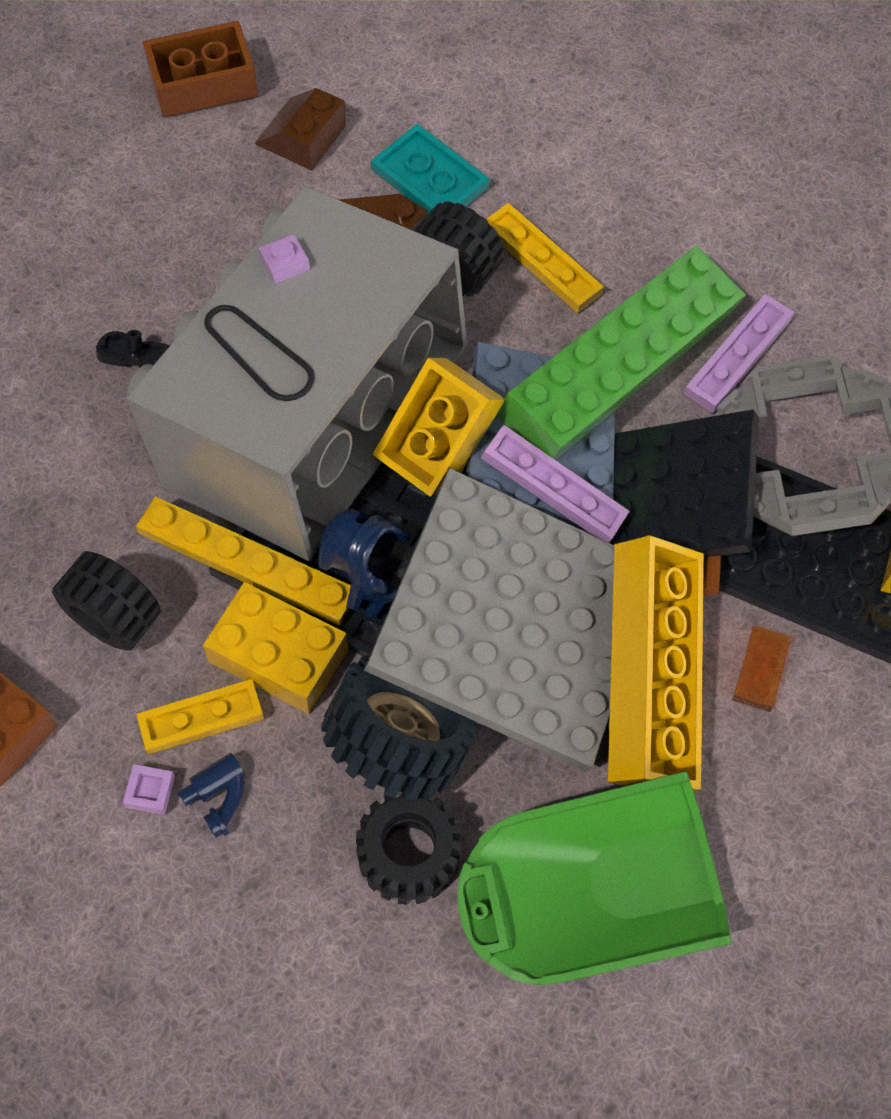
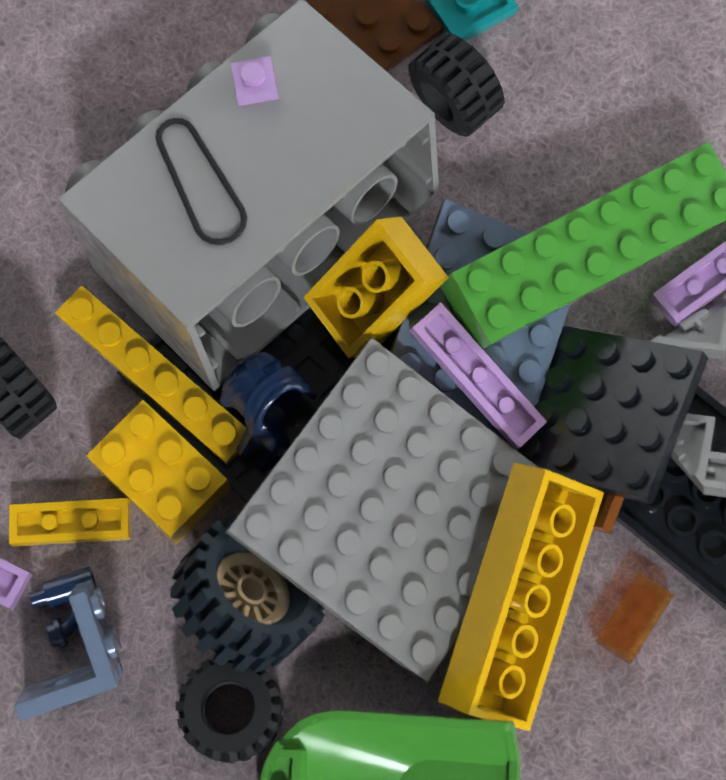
camera: 20 degrees right, 10 degrees up
(128, 349) = (96, 112): black piece -> none
(269, 817) = (102, 648): none -> sand blue bracket
(545, 259) = (549, 109): yellow plate -> none

